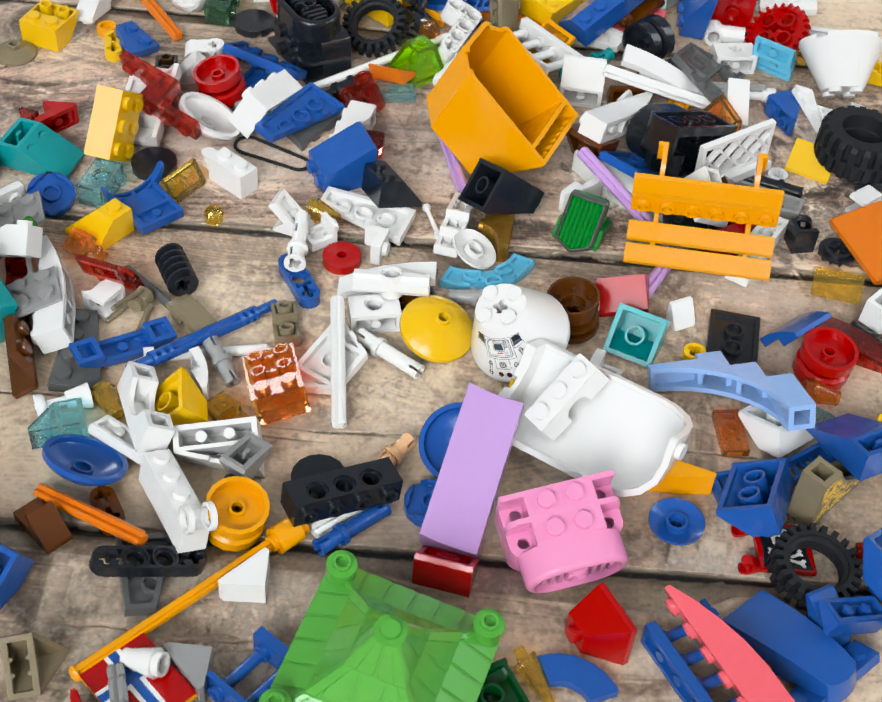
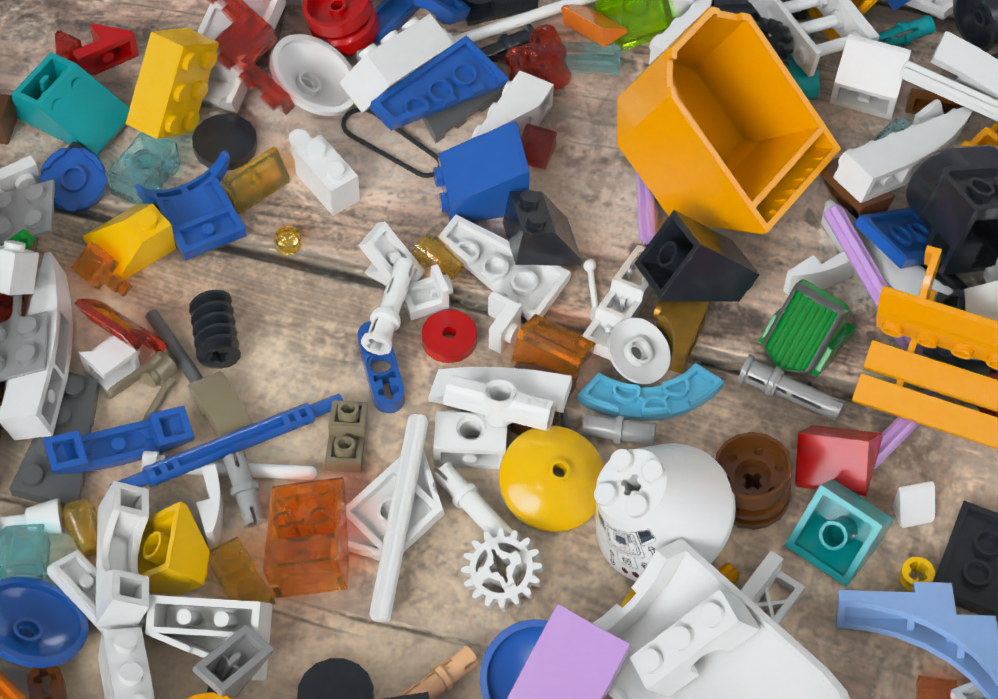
camera: 15 degrees right, 10 degrees up
(408, 249) = (552, 346): none -> clear orange panel
(422, 375) = (515, 565): none -> white gear
(569, 257) = (774, 381): none -> light grey pin

